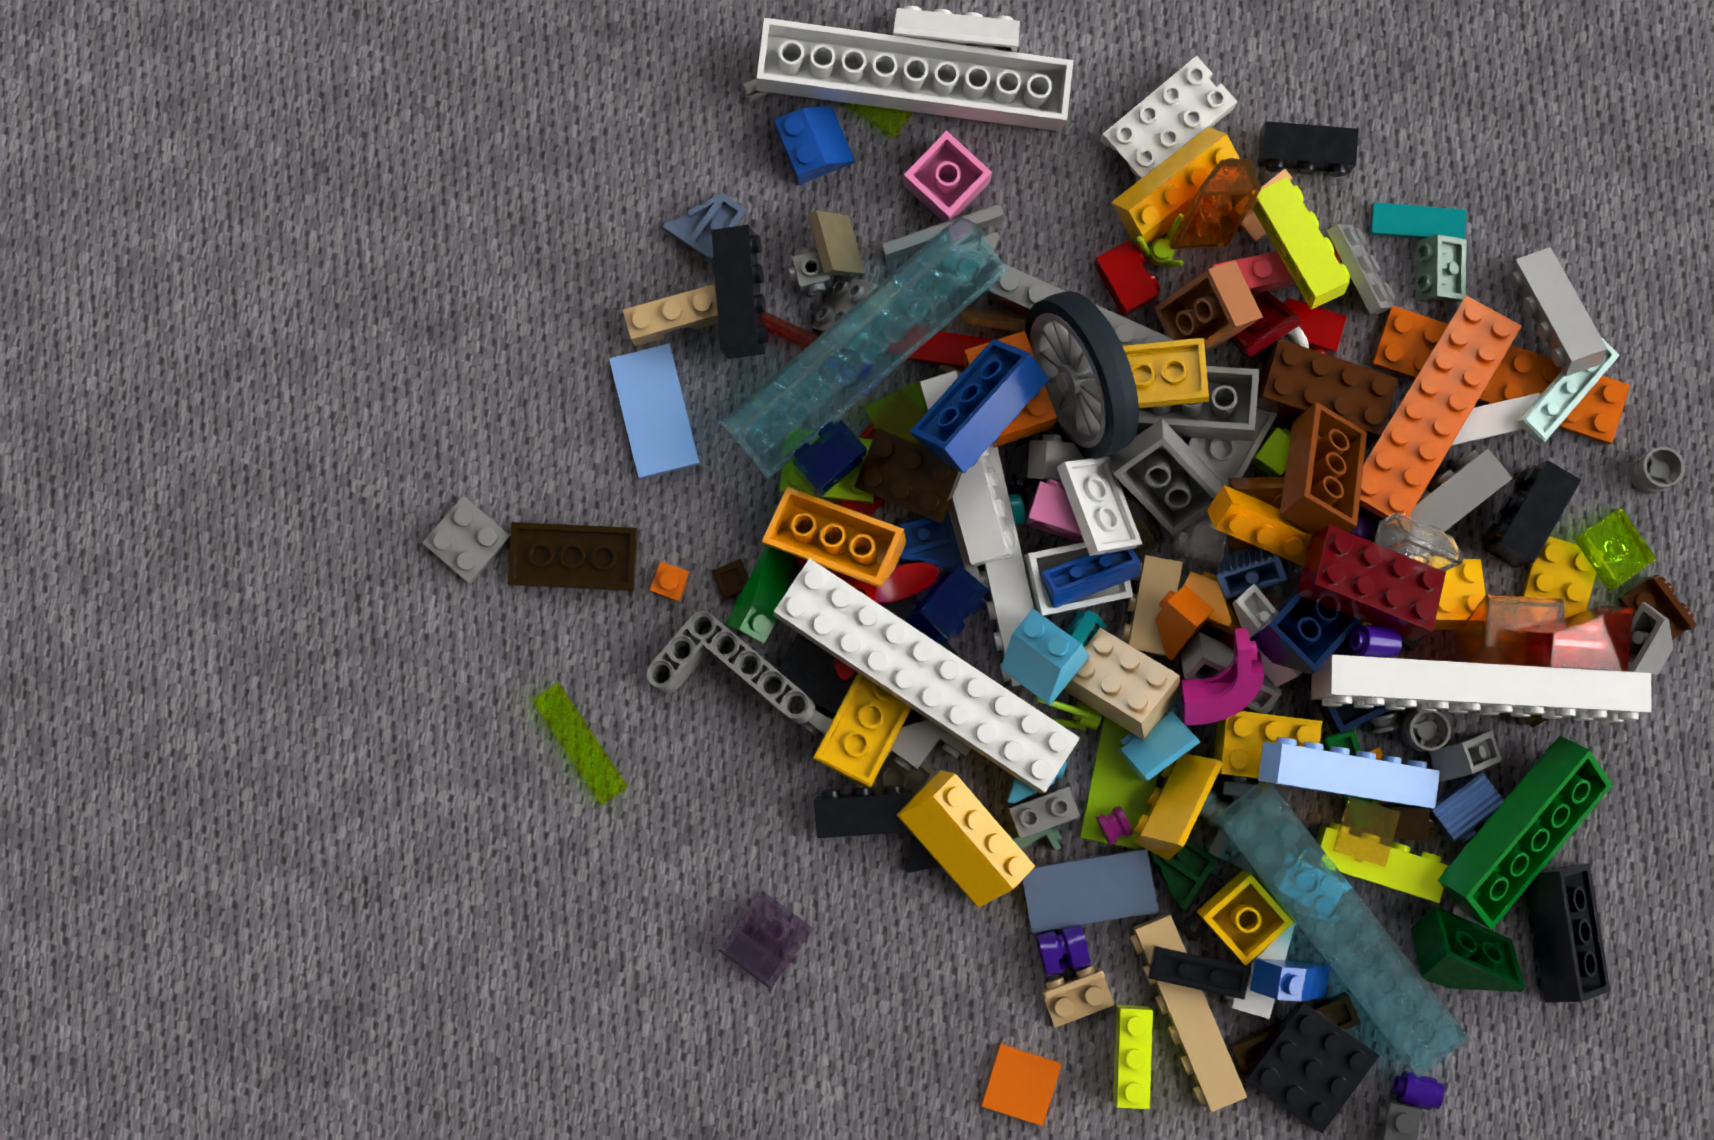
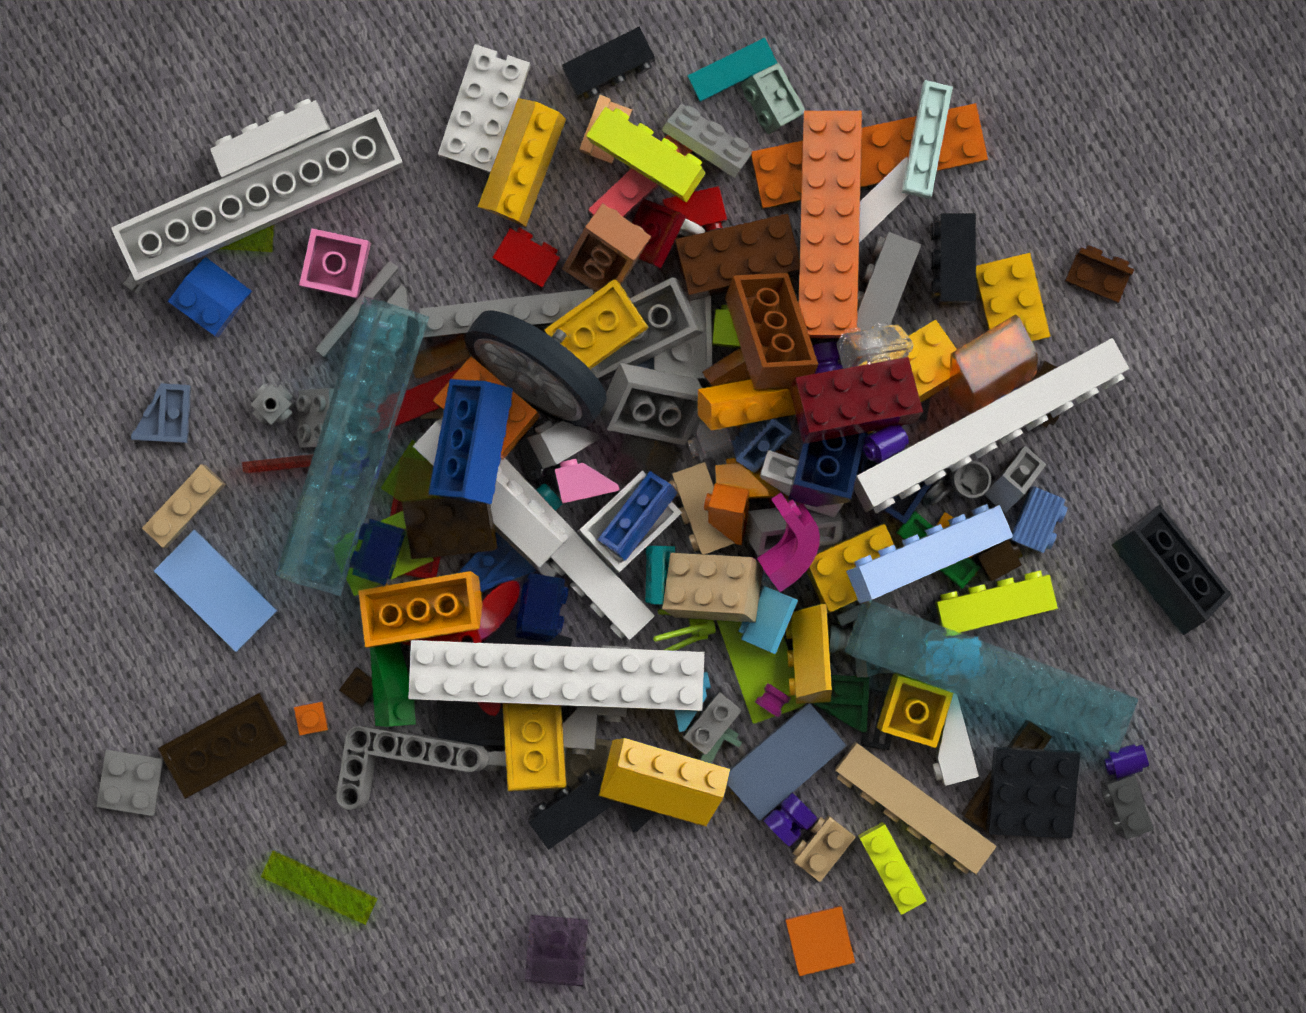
camera: 30 degrees left, 5 degrees up
(738, 291) = (225, 458): black brick -> none
(836, 244) = (279, 371): dark tan tile -> none
(1043, 657) = (638, 605): medium azure slope -> none
(1099, 505) = (612, 461): white plate -> none
(1160, 252) = (540, 218): lime plant -> none
(1199, 972) = (904, 774): black tile -> none
(1218, 206) = (563, 163): clear orange slope -> none
(1289, 979) = (977, 737): blue slope -> none
(1366, 831) = (969, 587): clear yellow piece -> none
(1465, 954) = (1100, 635): dark green slope -> none
(1525, 832) = (1092, 513): green brick -> none
(1557, 312) = (883, 83): light grey brick -> none
(1585, 640) = (1051, 338): clear red slope -> none
(1615, 549) = (1038, 244): clear neon green tile -> none
(1649, 641) = (1101, 309): light grey slope -> none
(1657, 470) = (1034, 162): light grey wheel -> none

